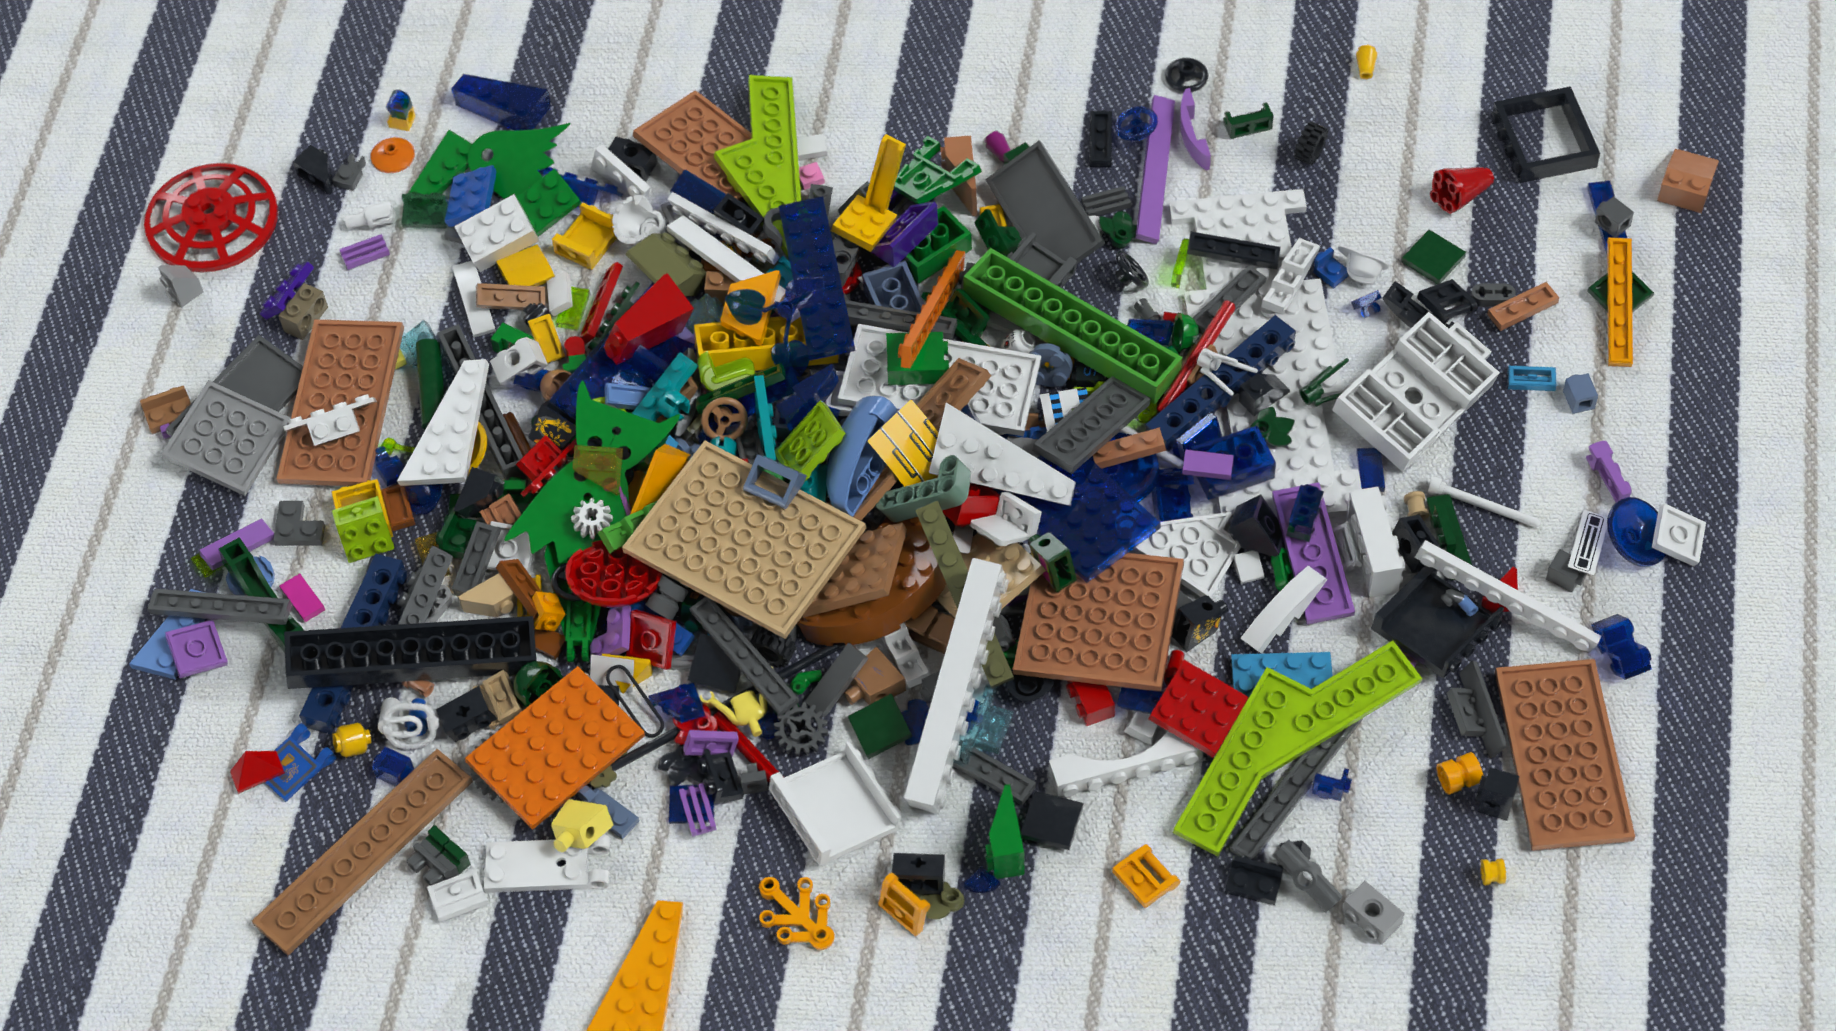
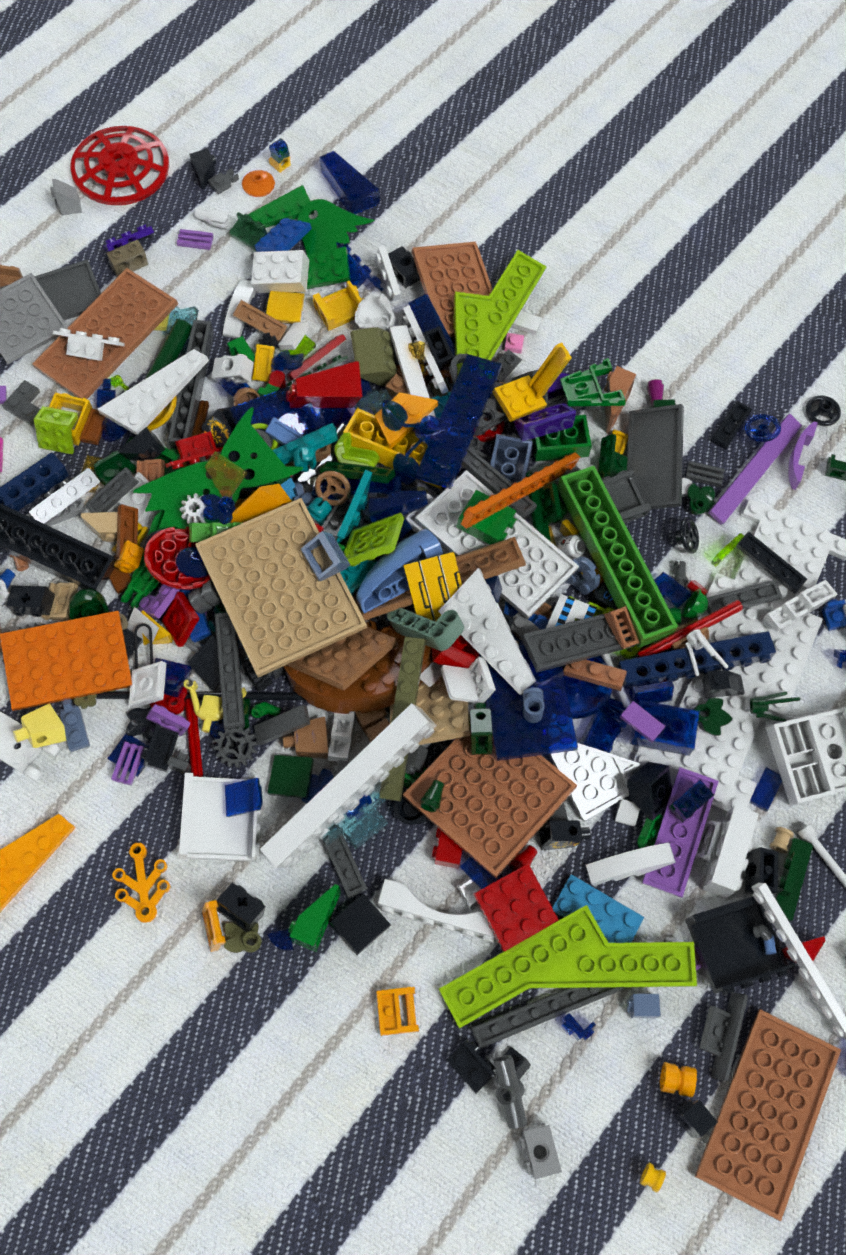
camera: 25 degrees right, 10 degrees up
(568, 325) = (287, 361): none -> clear blue plate
(619, 501) = (218, 508): none -> clear blue plate
(629, 570) = (190, 563): none -> clear blue dish
(663, 721) = (147, 684): none -> white tile
(717, 232) = (417, 349): none -> clear yellow tile
(847, 768) = (243, 797): none -> clear blue piece
(1000, 330) = (568, 528): none -> yellow tile
(1046, 651) = (432, 798): none -> dark green cone
(1085, 500) = (533, 698): none -> sand blue piece
(1115, 384) = (617, 630): none -> nougat slope
(1384, 729) = (644, 1006): none -> sand blue brick

